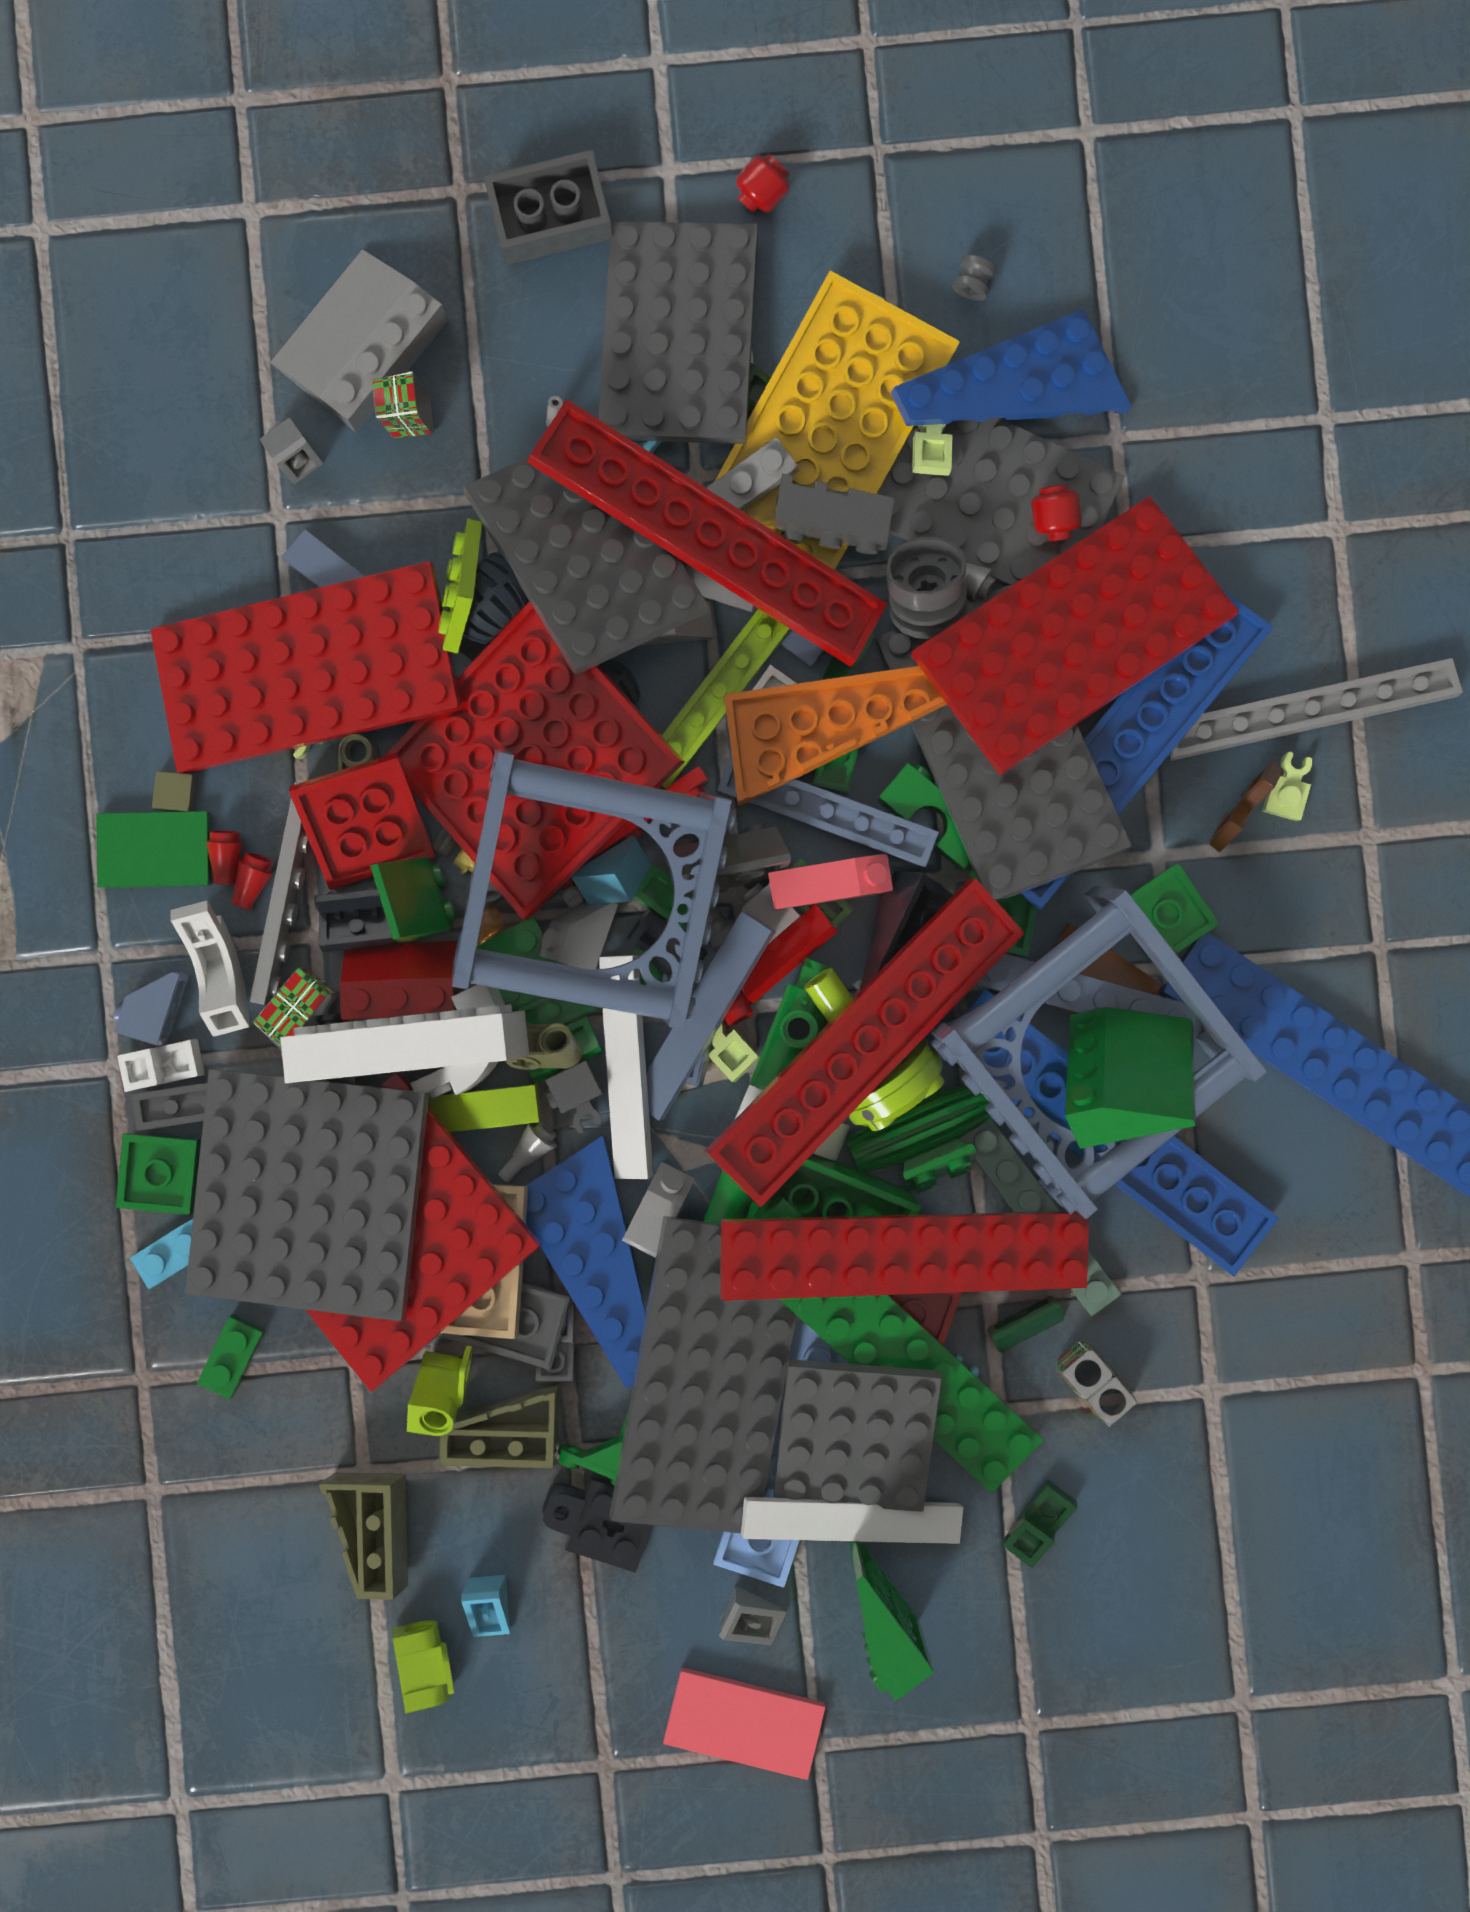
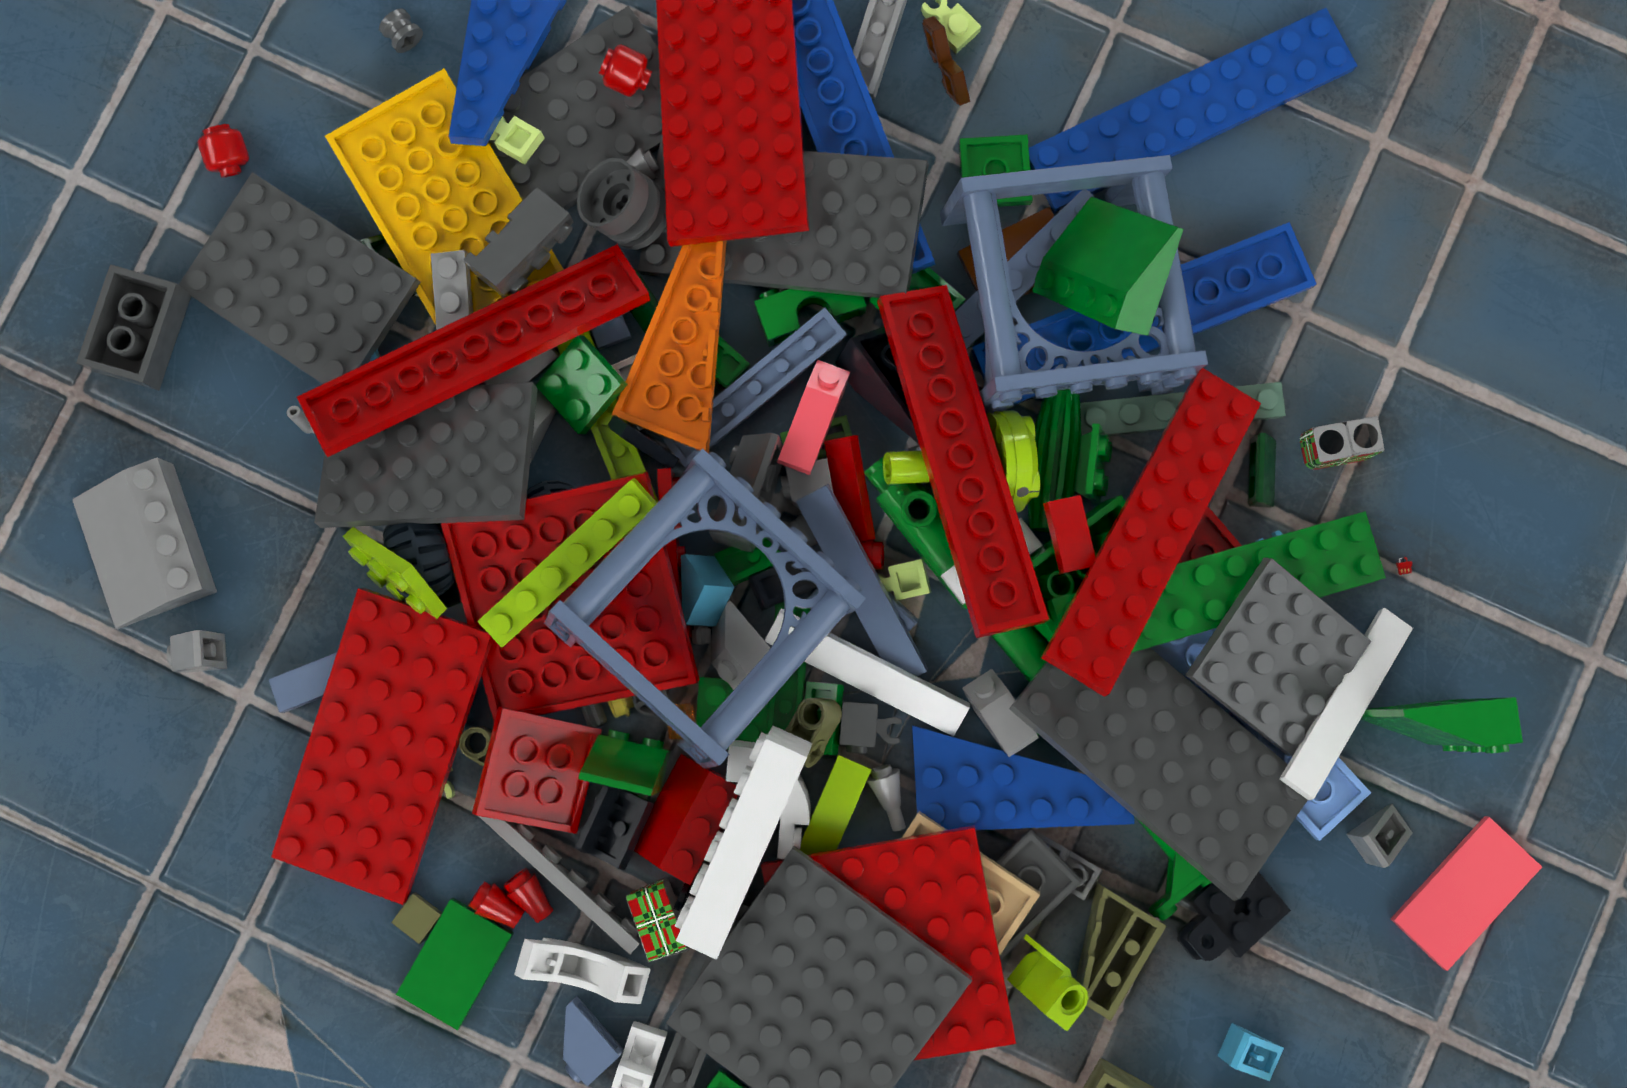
camera: 60 degrees left, 5 degrees down
(403, 405) = (218, 537): piece -> none
(561, 739) = (567, 562): none -> lime plate
(715, 738) = (642, 442): none -> black tile
(736, 650) = (581, 384): none -> green plate
(854, 1181) = (1069, 534): none -> red tile
(1014, 1505) = (1404, 567): none -> red piece
(1038, 1523) = (1430, 554): dark green slope -> none

